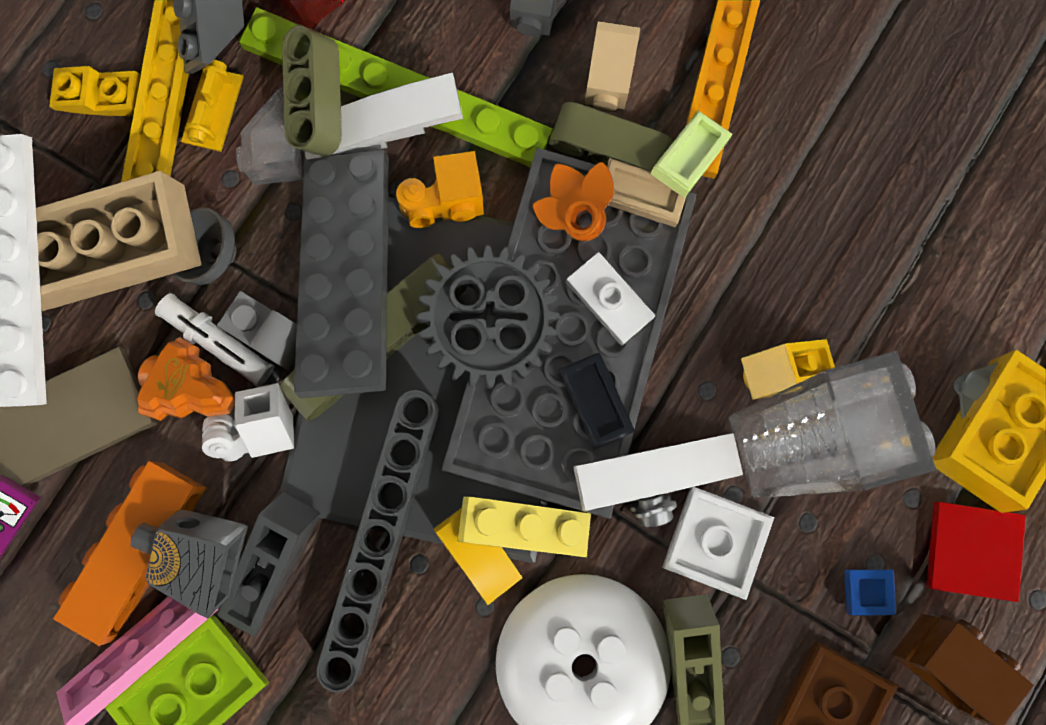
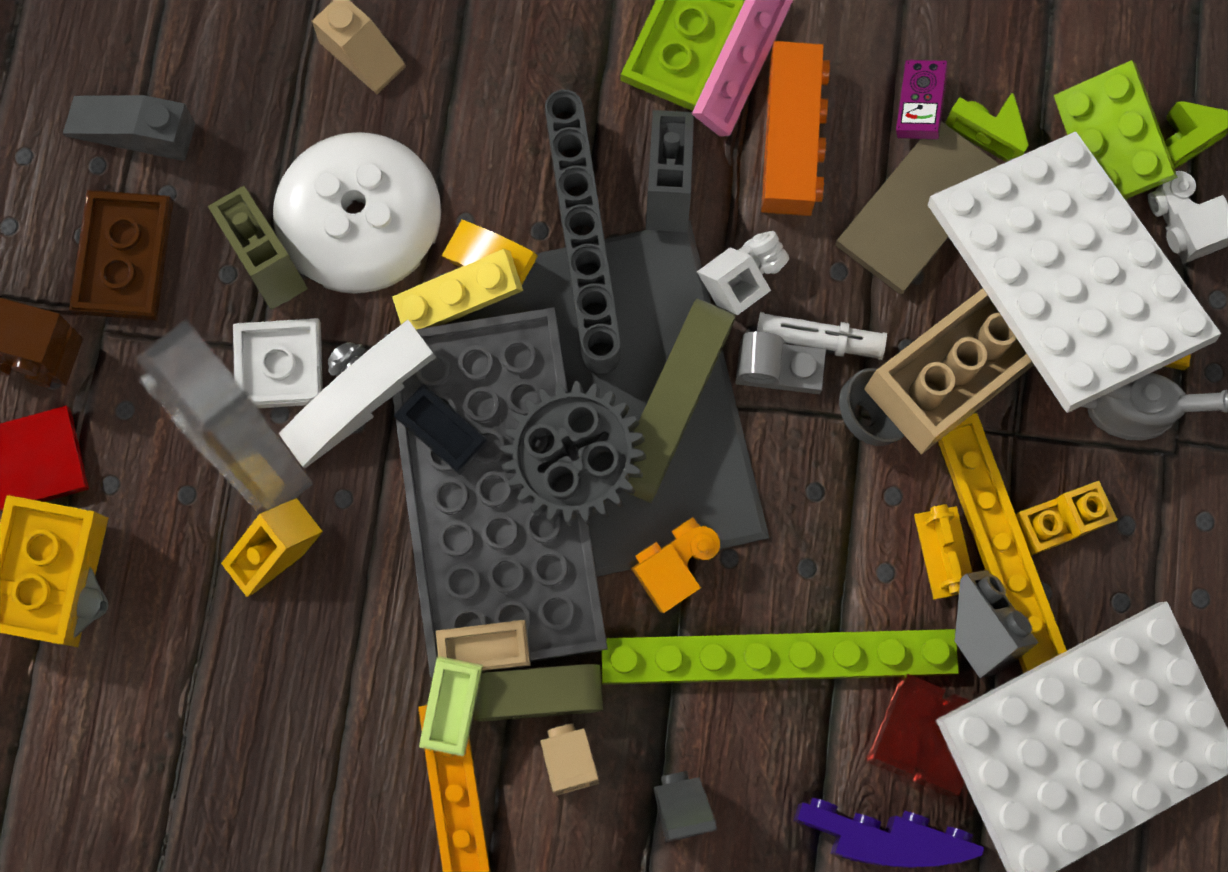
camera: 155 degrees right, 5 degrees down
(180, 384) = (824, 279): orange rock -> none
(192, 558) = (731, 137): dark grey torso -> none
(264, 148) = (865, 541): clear slope -> none
(311, 91) = (848, 597): olive beam -> none
(343, 276) = (731, 442): dark grey plate -> none
(396, 114) = (771, 607): white slope -> none
(574, 196) = (547, 611): orange plate -> none
(610, 298) = (469, 528): white plate -> none
(870, 592) = (120, 378): blue plate -> none

